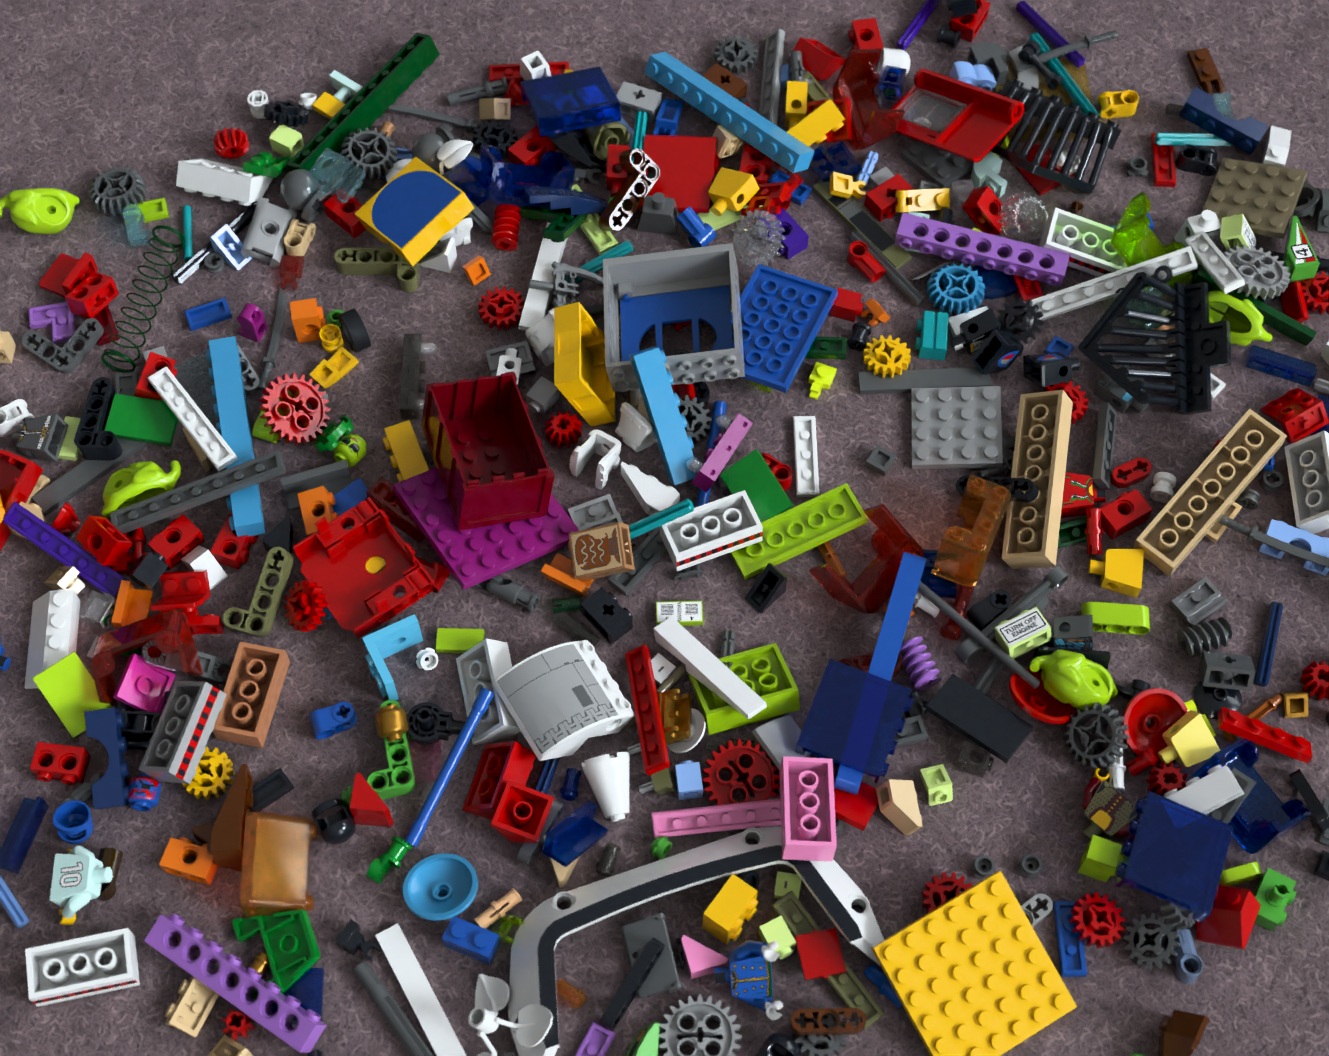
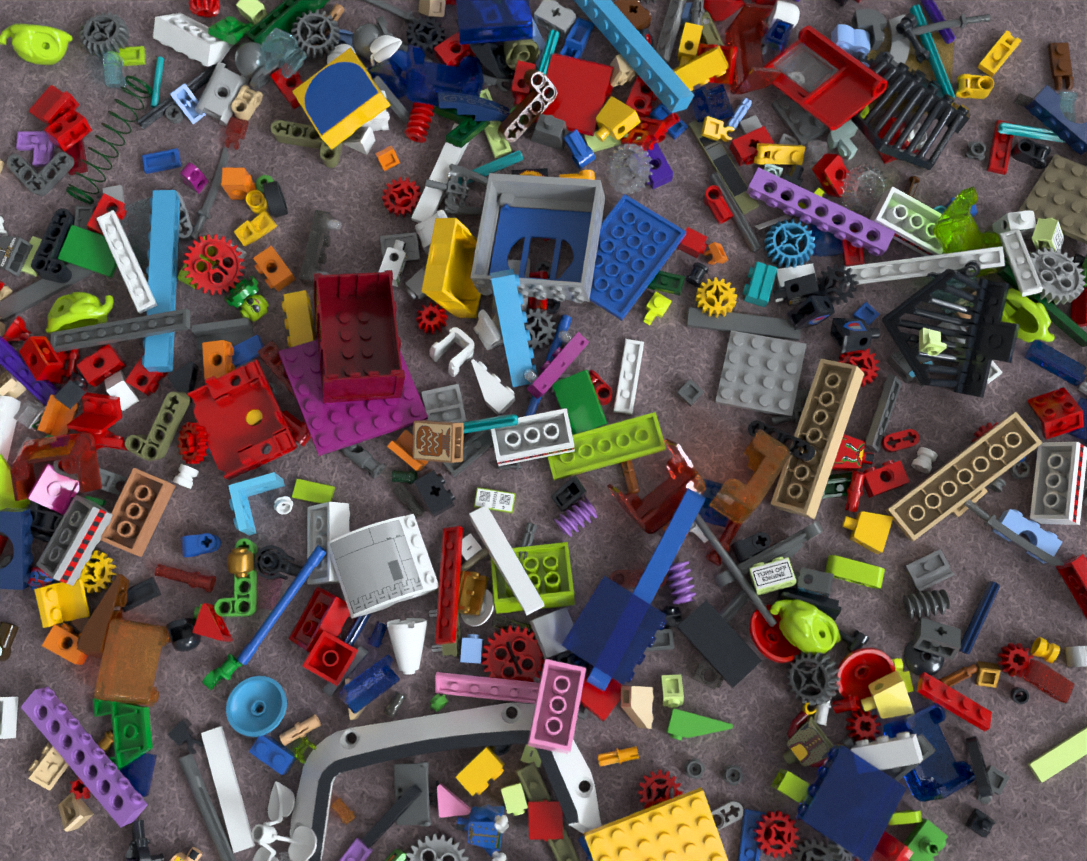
camera: 15 degrees right, 15 degrees up
(177, 810) = (61, 602): none -> yellow bracket
(301, 647) = (185, 476): none -> white wheel
(334, 760) = (194, 579): none -> clear red pin
(361, 395) = (266, 261): none -> orange brick
(779, 612) = (576, 517): none -> medium lavender piece
(890, 869) = (618, 756): none -> light orange axle
(967, 816) = (689, 725): none -> bright green slope
(1136, 69) = (999, 54): none -> yellow plate
(1138, 358) = (930, 342): none -> yellowish green bracket

